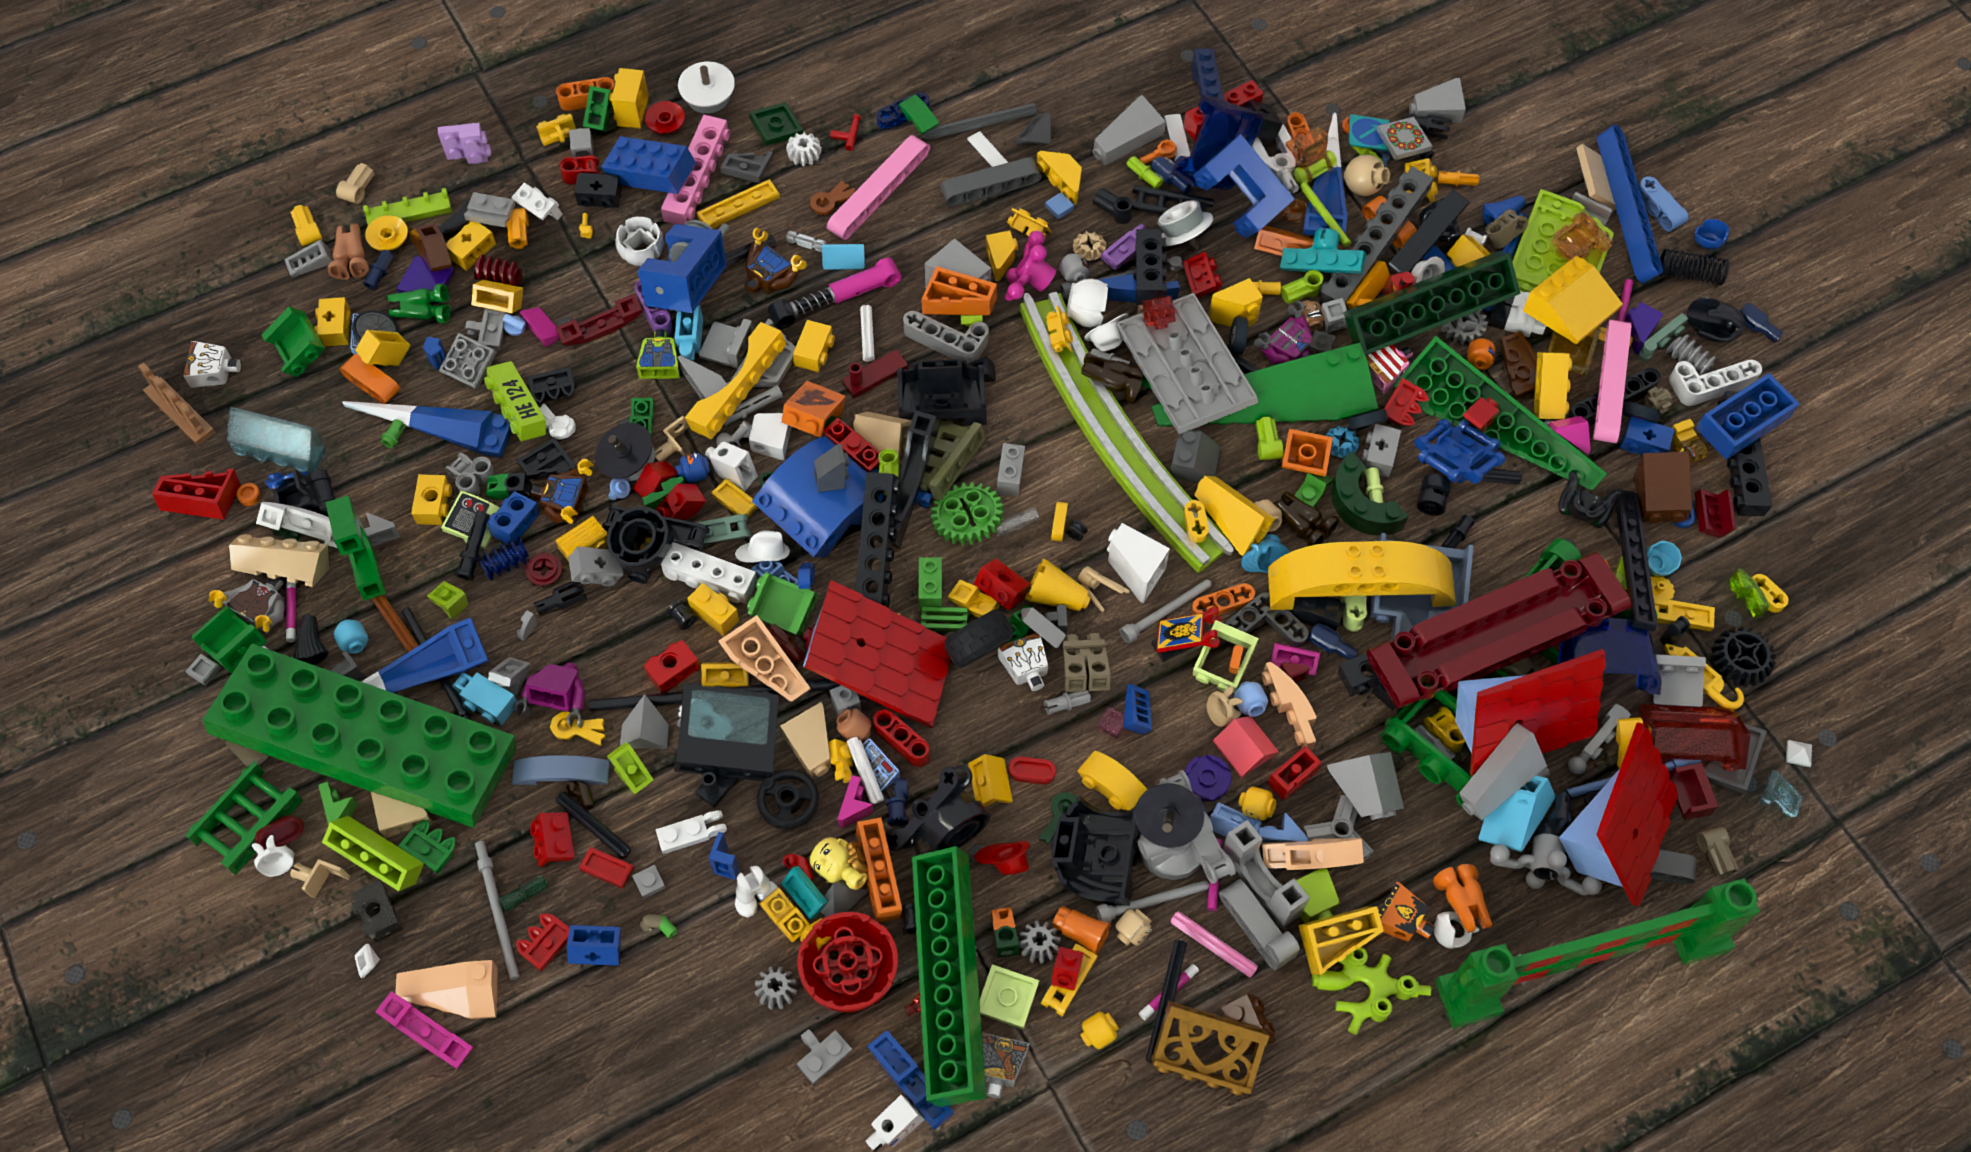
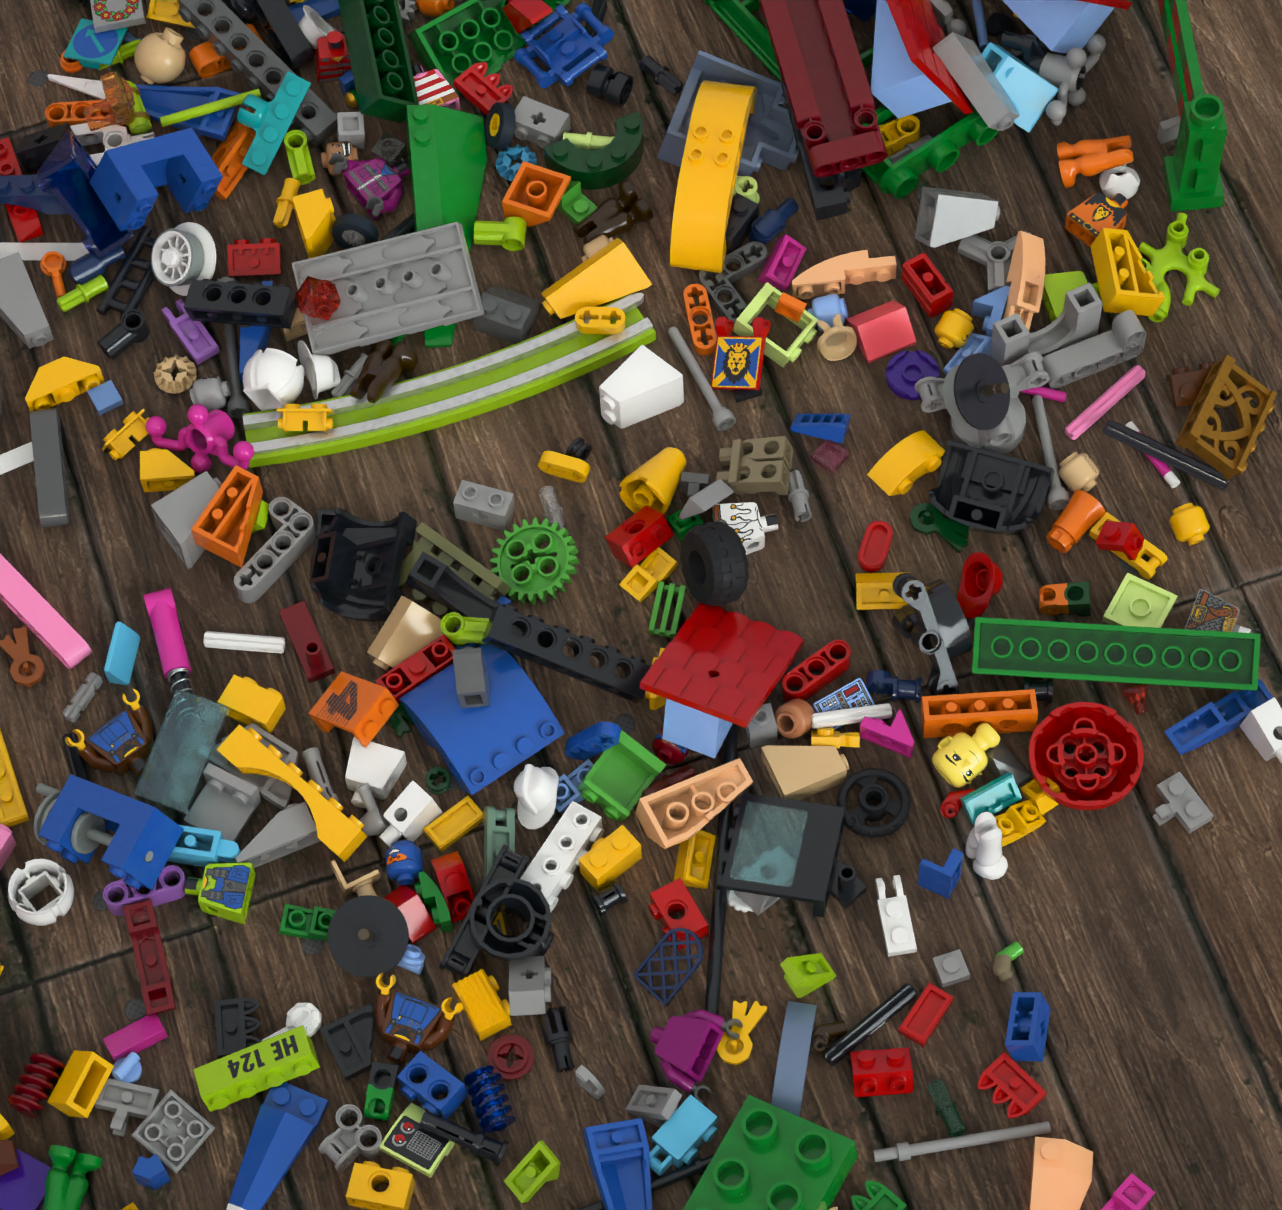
camera: 75 degrees left, 0 degrees up
(641, 672) = (678, 985): none -> dark blue window
(645, 727) = (753, 955): light grey slope -> none
(760, 303) = (181, 751): none -> clear light blue slope
(784, 983) = (1093, 847): light grey gear -> none
(856, 857) = (969, 725): pearl gold piece -> none
(930, 582) = (621, 614): bright green brick -> none
(1047, 937) = (1093, 564): light grey gear -> none
(1092, 579) = (646, 445): tan plant -> none
(1263, 554) = (653, 261): dark azure hair -> none
(1295, 671) = (804, 261): dark red slope -> none
(1370, 286) = (336, 102): light orange piece -> none

